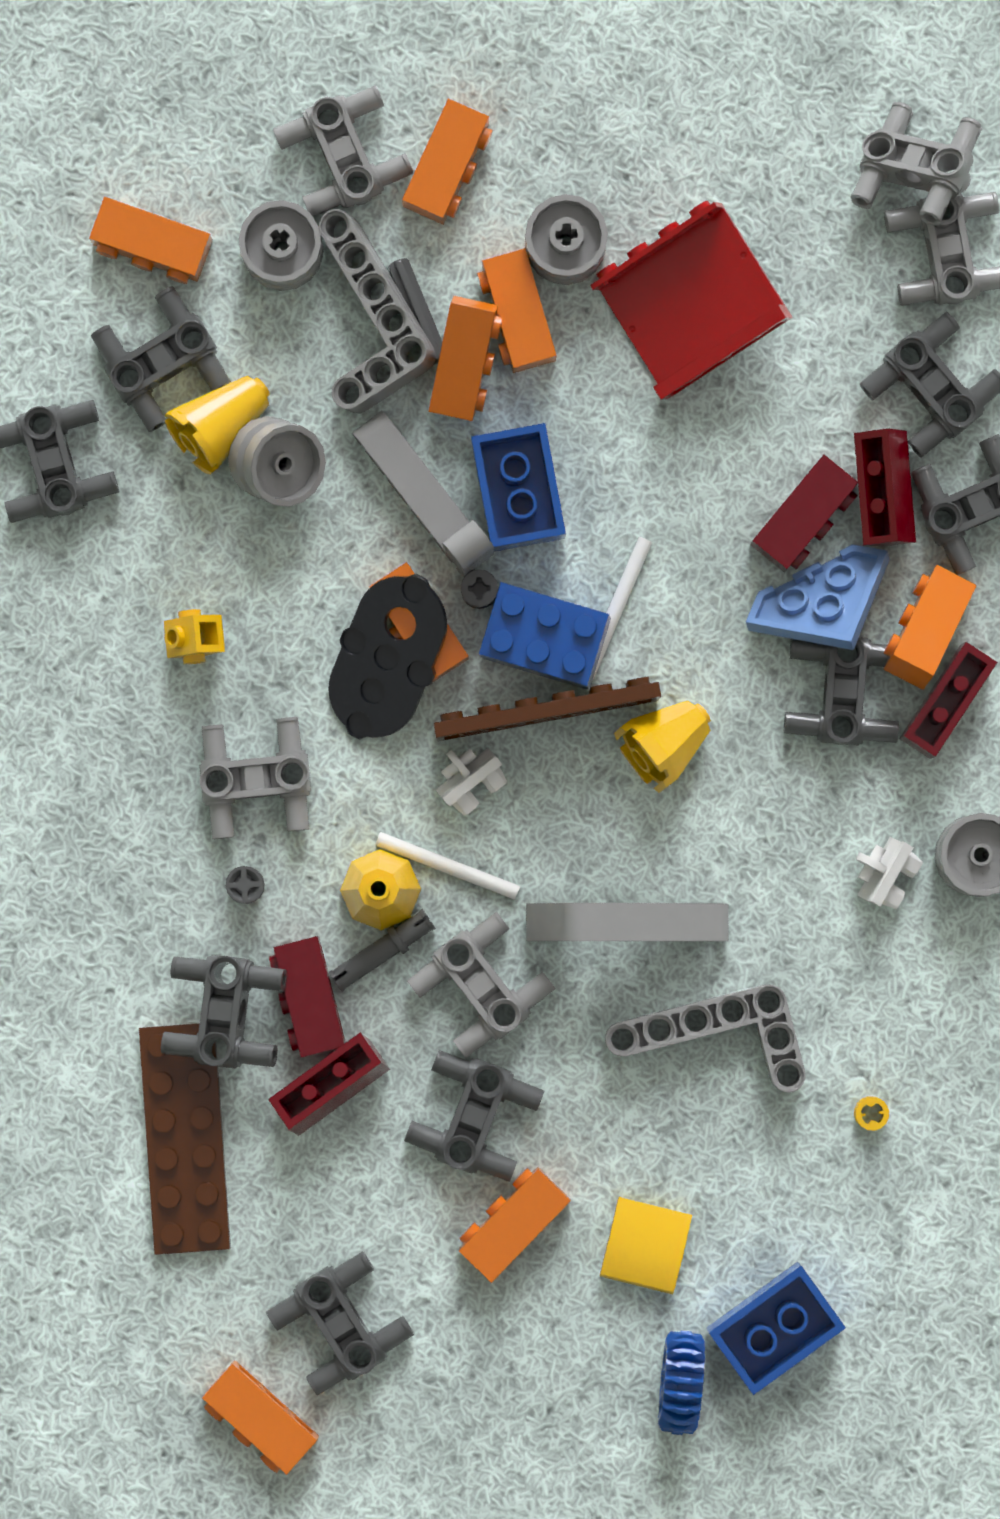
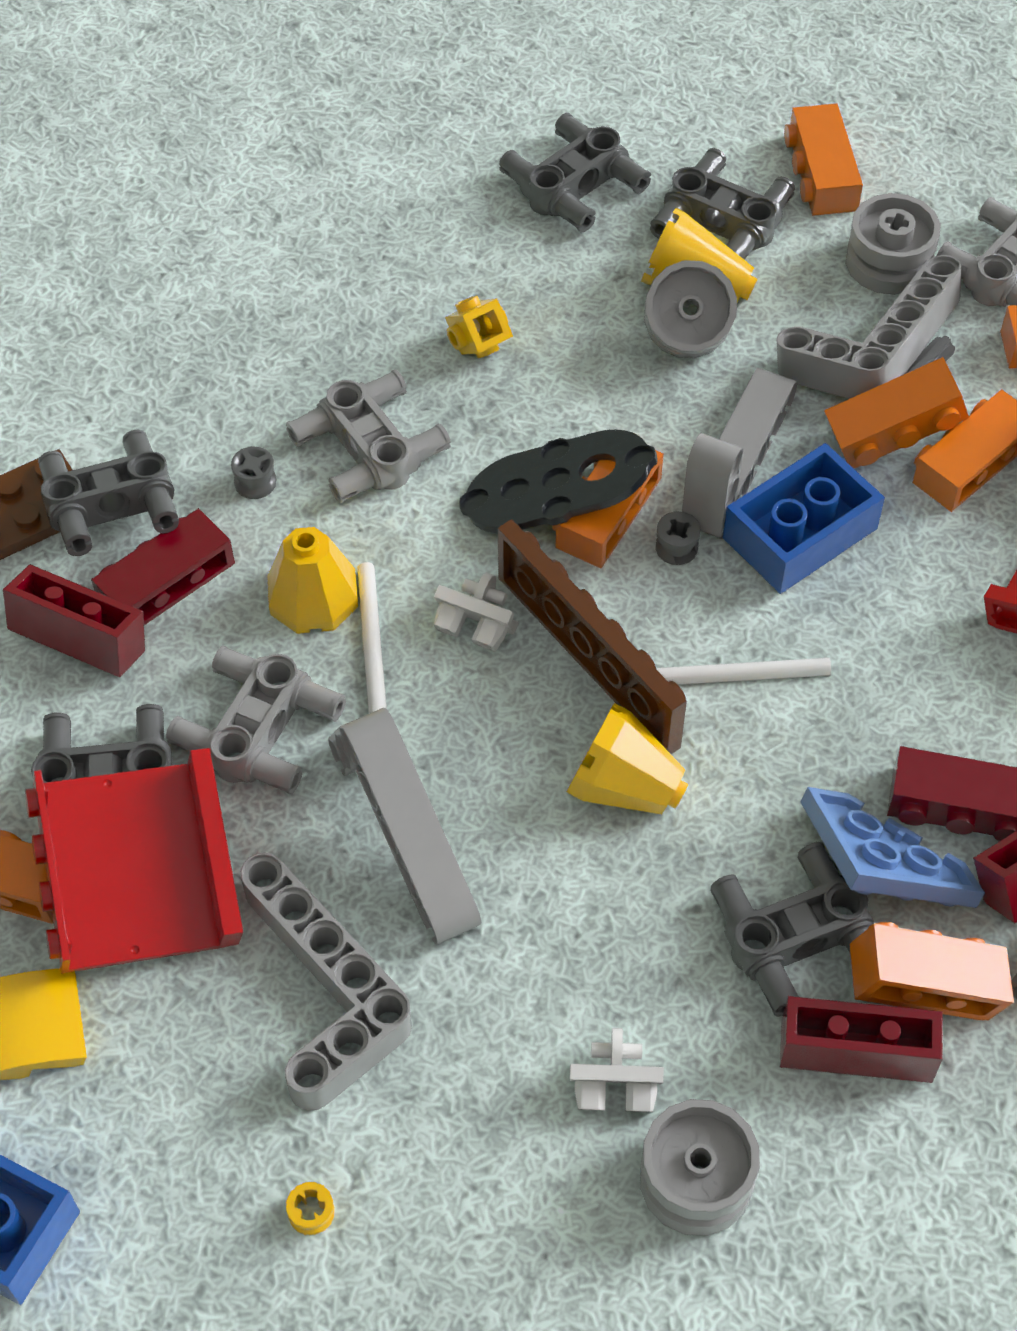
camera: 65 degrees right, 30 degrees down
(383, 949) = (261, 622): dark grey pin -> none
(545, 636) = (669, 604): blue brick -> none
(568, 1124) = (134, 865): none -> red panel

